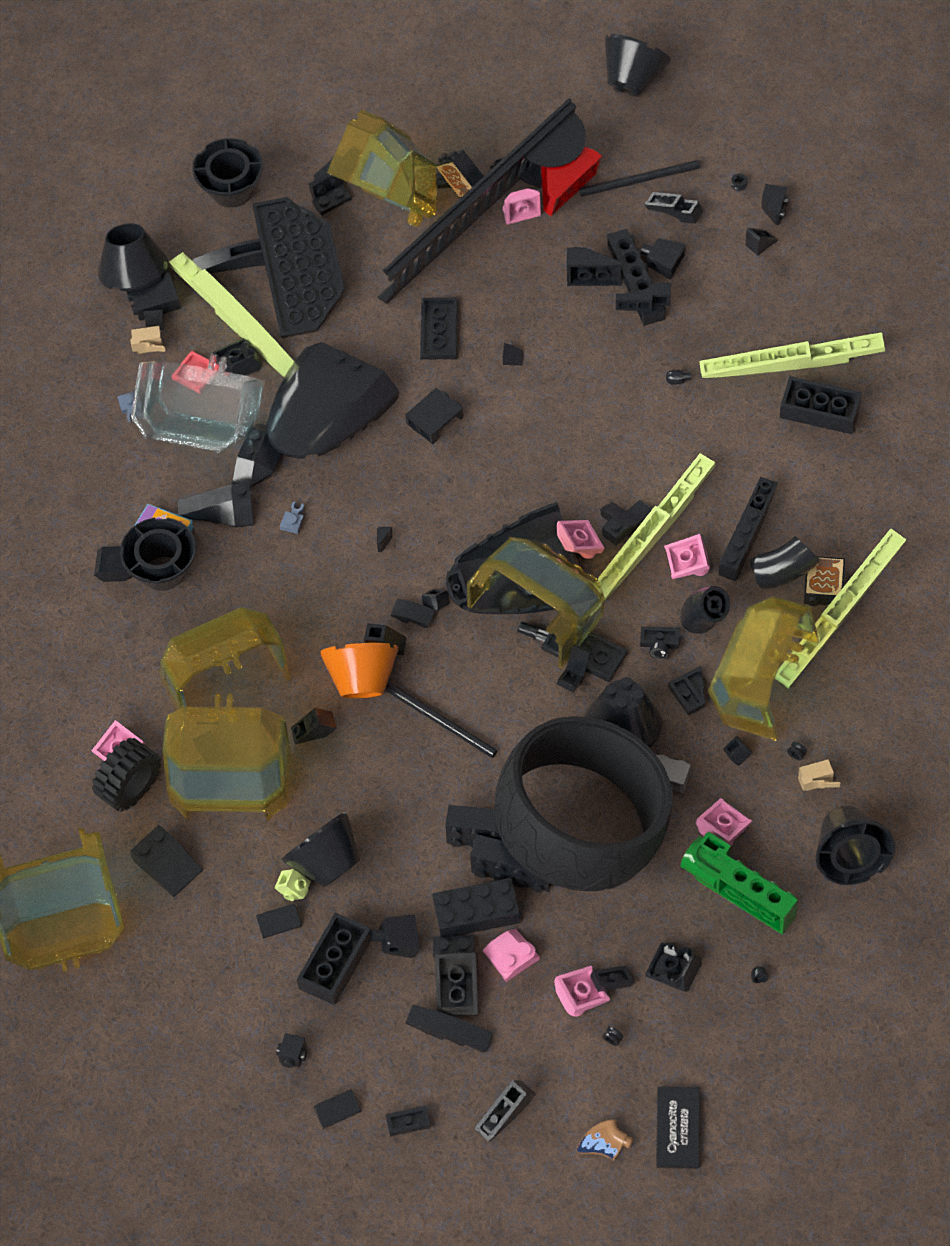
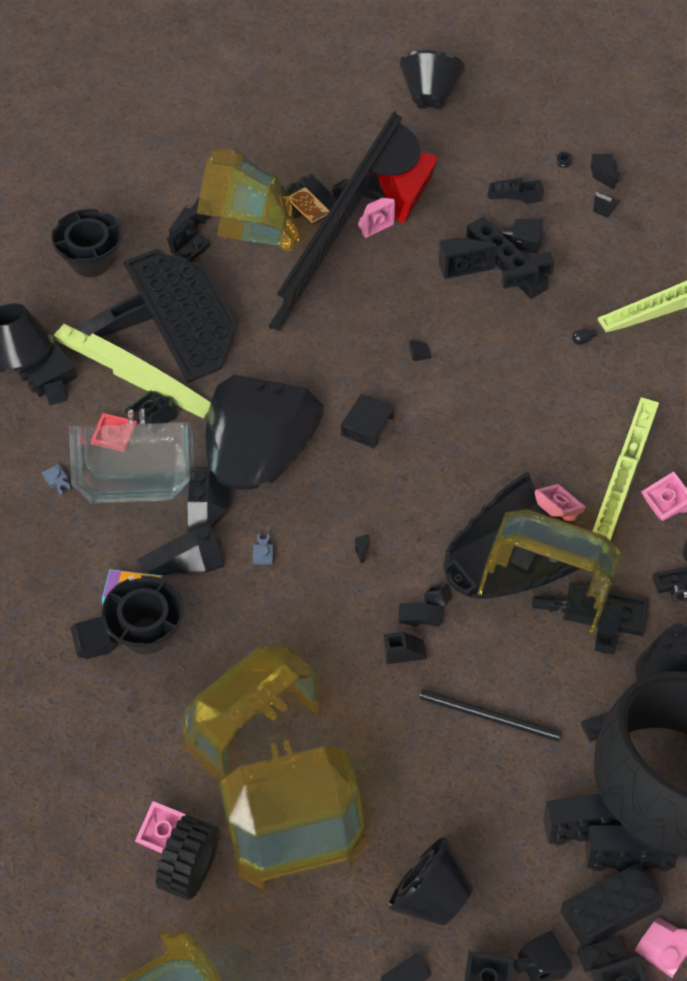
camera: 20 degrees left, 5 degrees down
(147, 340) = (55, 412): tan piece -> none
(165, 860) = (257, 942): black slope -> none
(292, 885) = (407, 932): yellowish green brick -> none
(313, 726) = (367, 752): black slope -> none
(360, 668) = (396, 682): orange cone -> none
(438, 328) = (339, 341): black tile -> none
(610, 510) = (576, 473): black slope -> none
(626, 523) = (595, 478): black slope -> none
(643, 177) = (472, 174): black piece -> none

